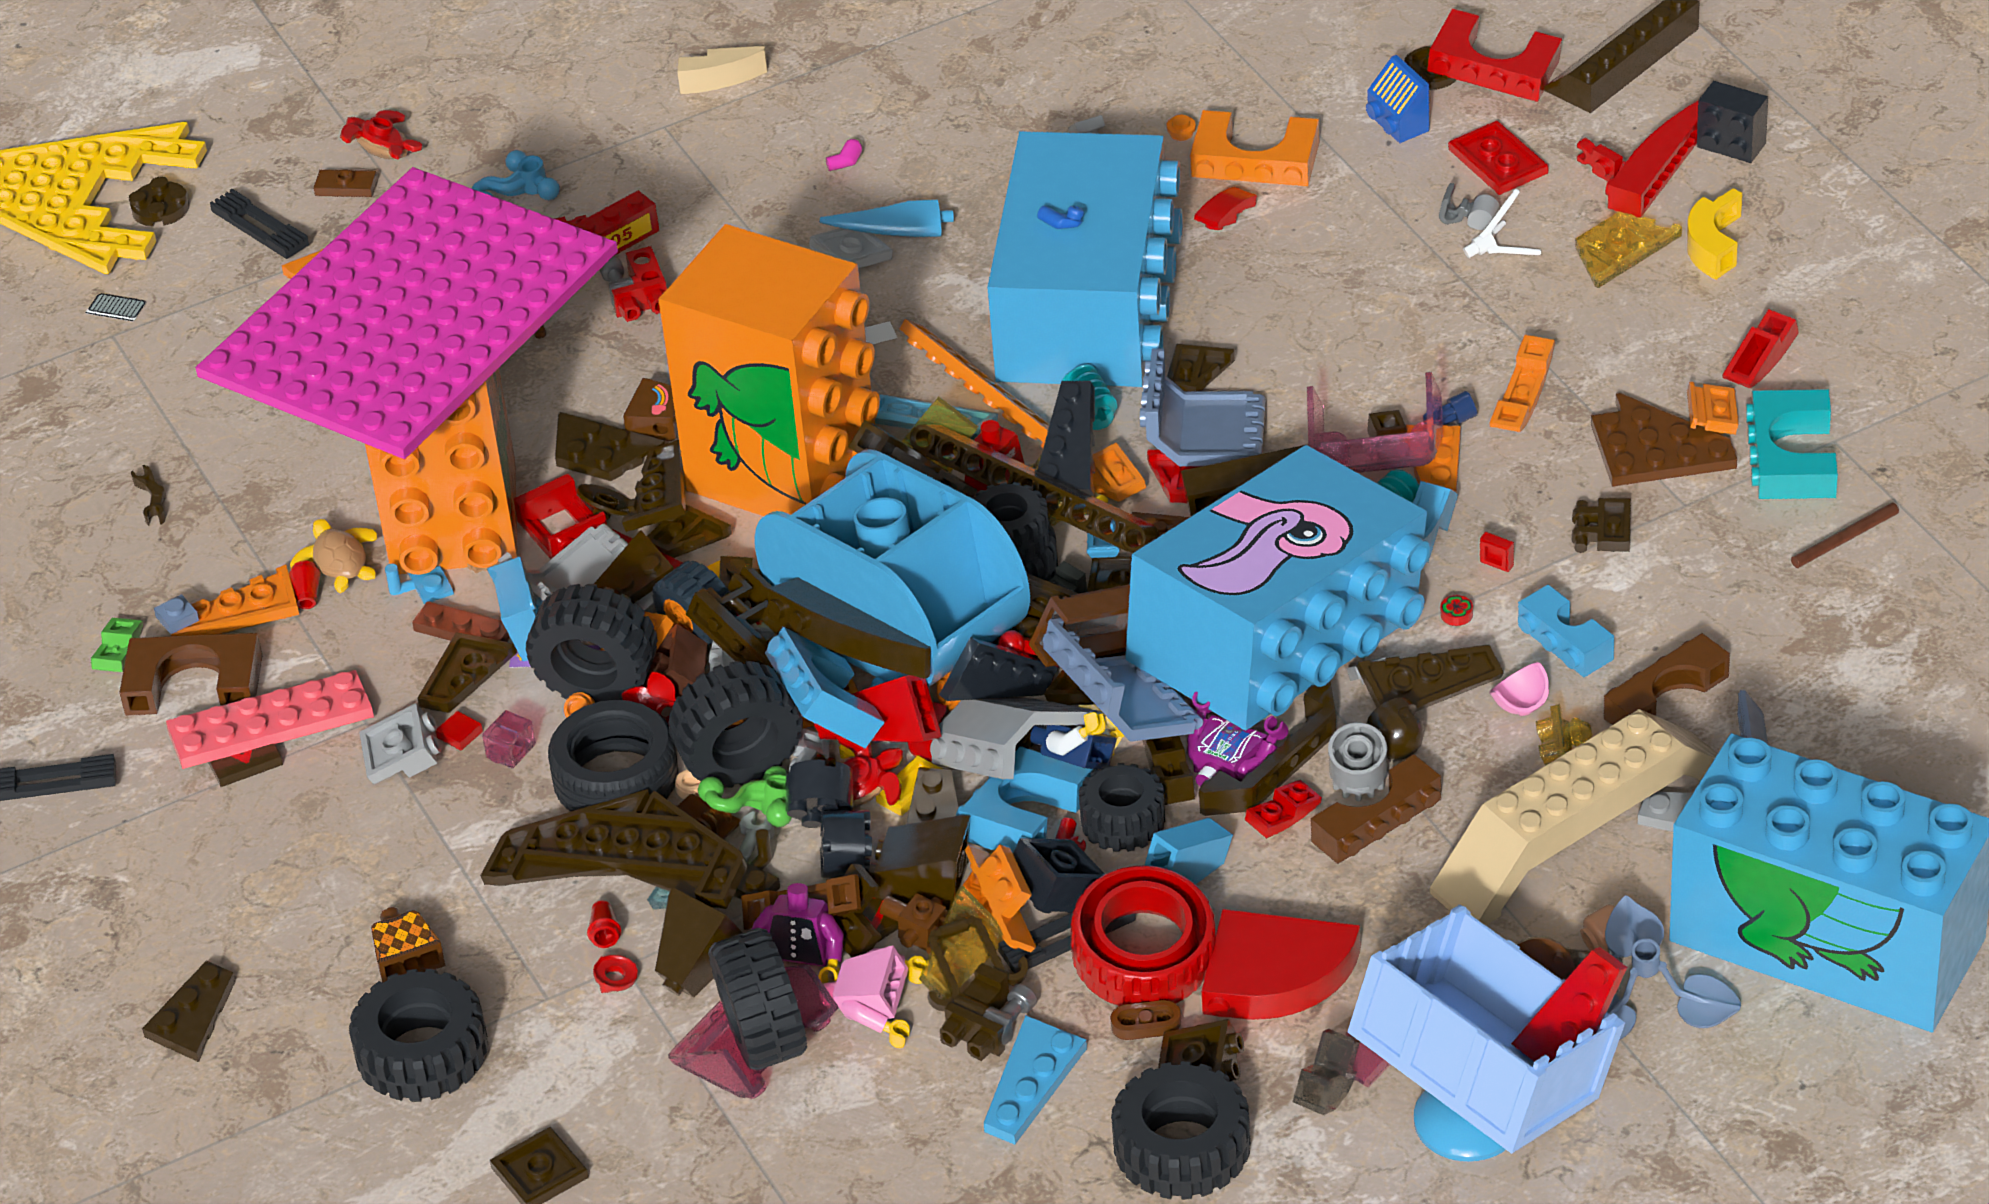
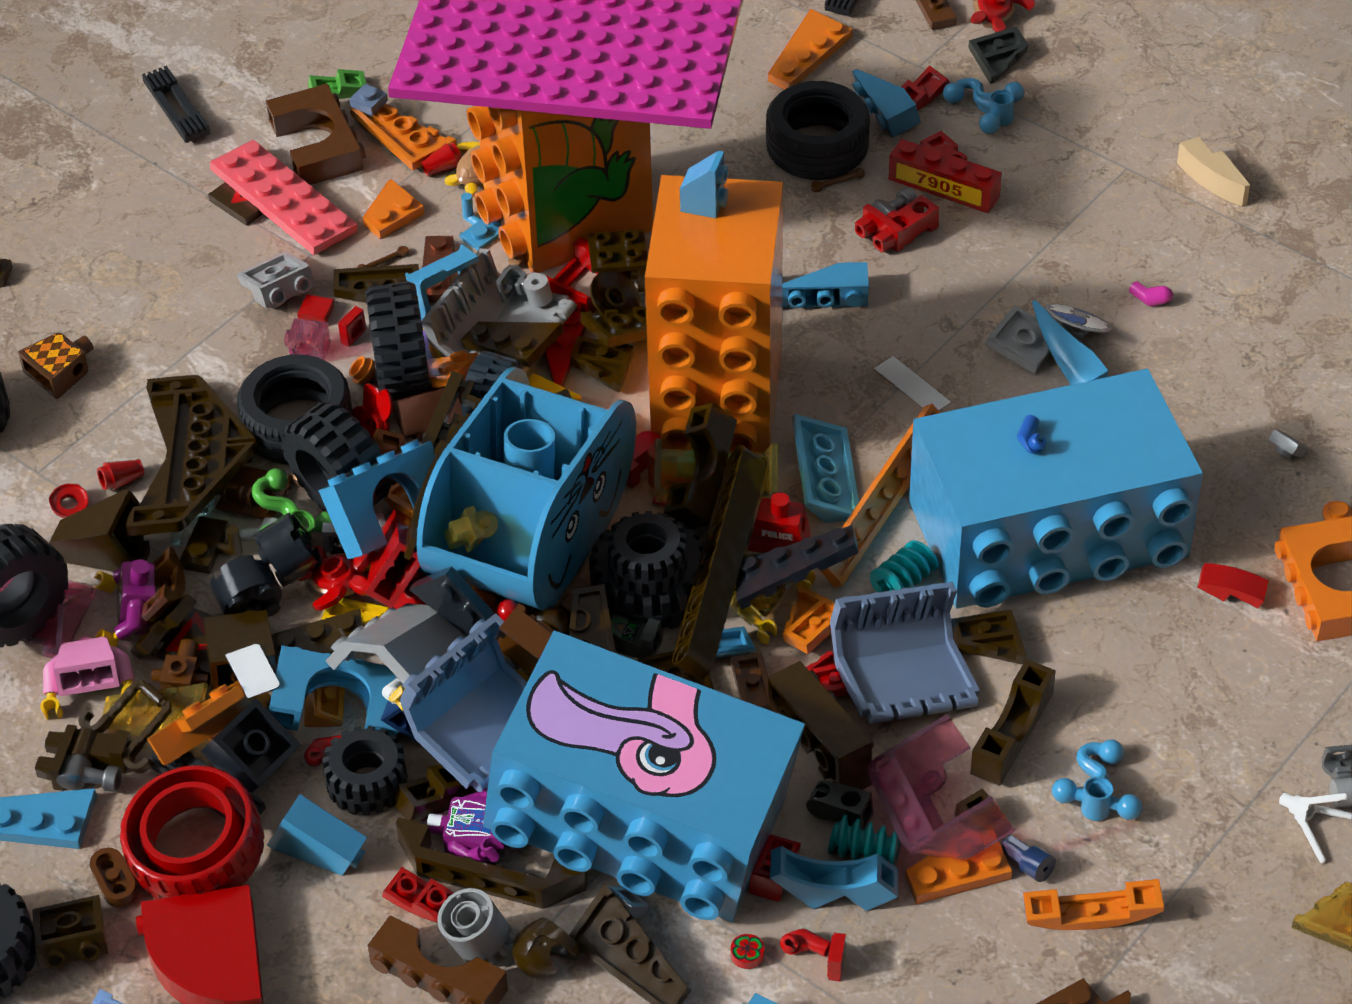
camera: 65 degrees right, 5 degrees up
(347, 642) = (391, 210): none -> orange wing
(416, 649) = (402, 251): none -> reddish brown hinge
(449, 158) = (998, 51): none -> pearl dark grey wing
(510, 698) = (352, 326): none -> red tile
(562, 473) = (619, 253): none -> dark brown bracket
(570, 548) = (534, 285): none -> leg
(718, 258) = (703, 187): none -> dark azure slope
(854, 202) = (1078, 318): none -> shield
(939, 606) = (470, 529): none -> clear yellow hips
(982, 834) = (252, 670): none -> white sticker
(1283, 359) = (1026, 702): none -> dark brown arch
(1409, 350) = (1097, 793): none -> dark azure piece
(1464, 571) = (804, 940): none -> red arm

